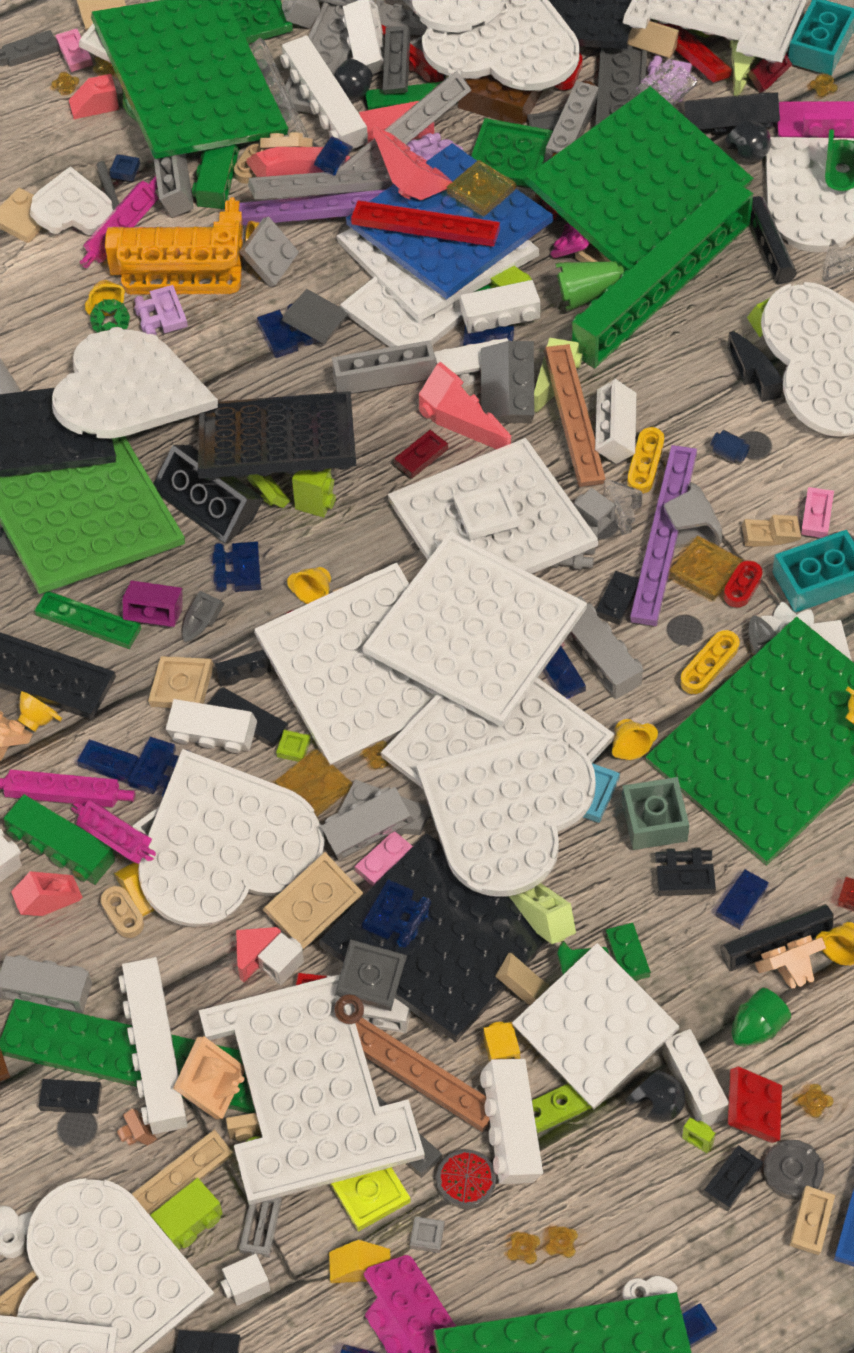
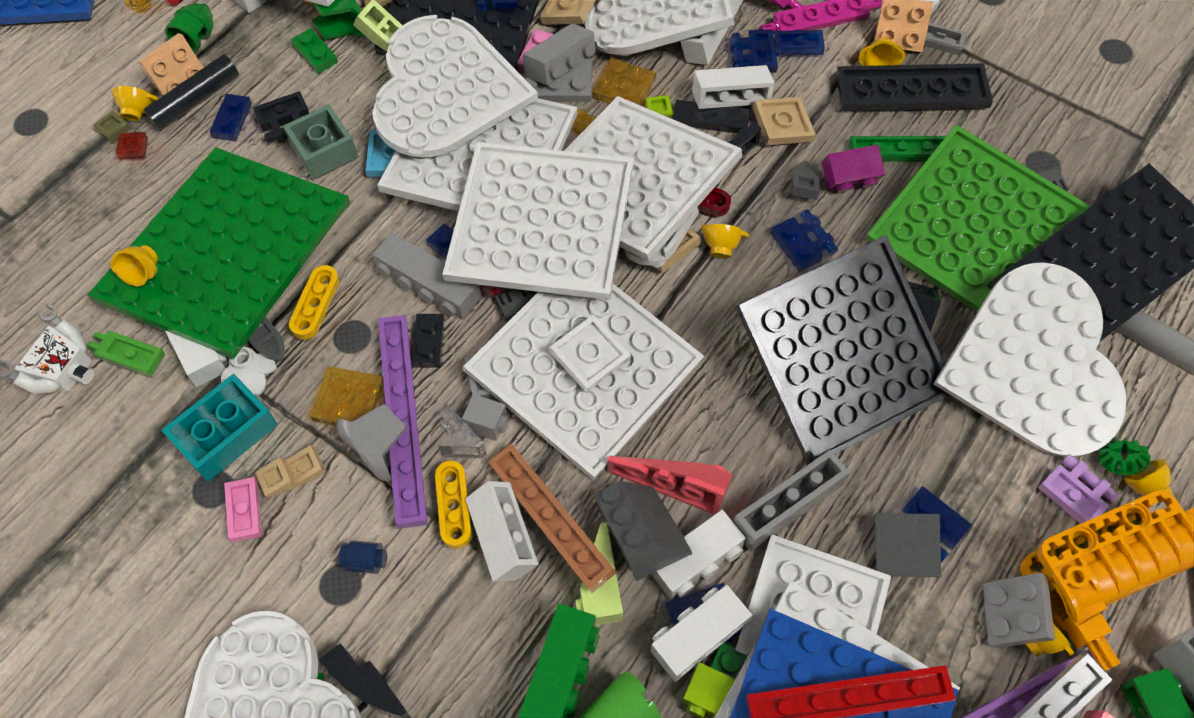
camera: 155 degrees right, 5 degrees up
(421, 454) = (696, 420): dark red plate -> none
(633, 739) = (365, 202): yellow piece -> none
(742, 586) = (302, 397): red plate -> none

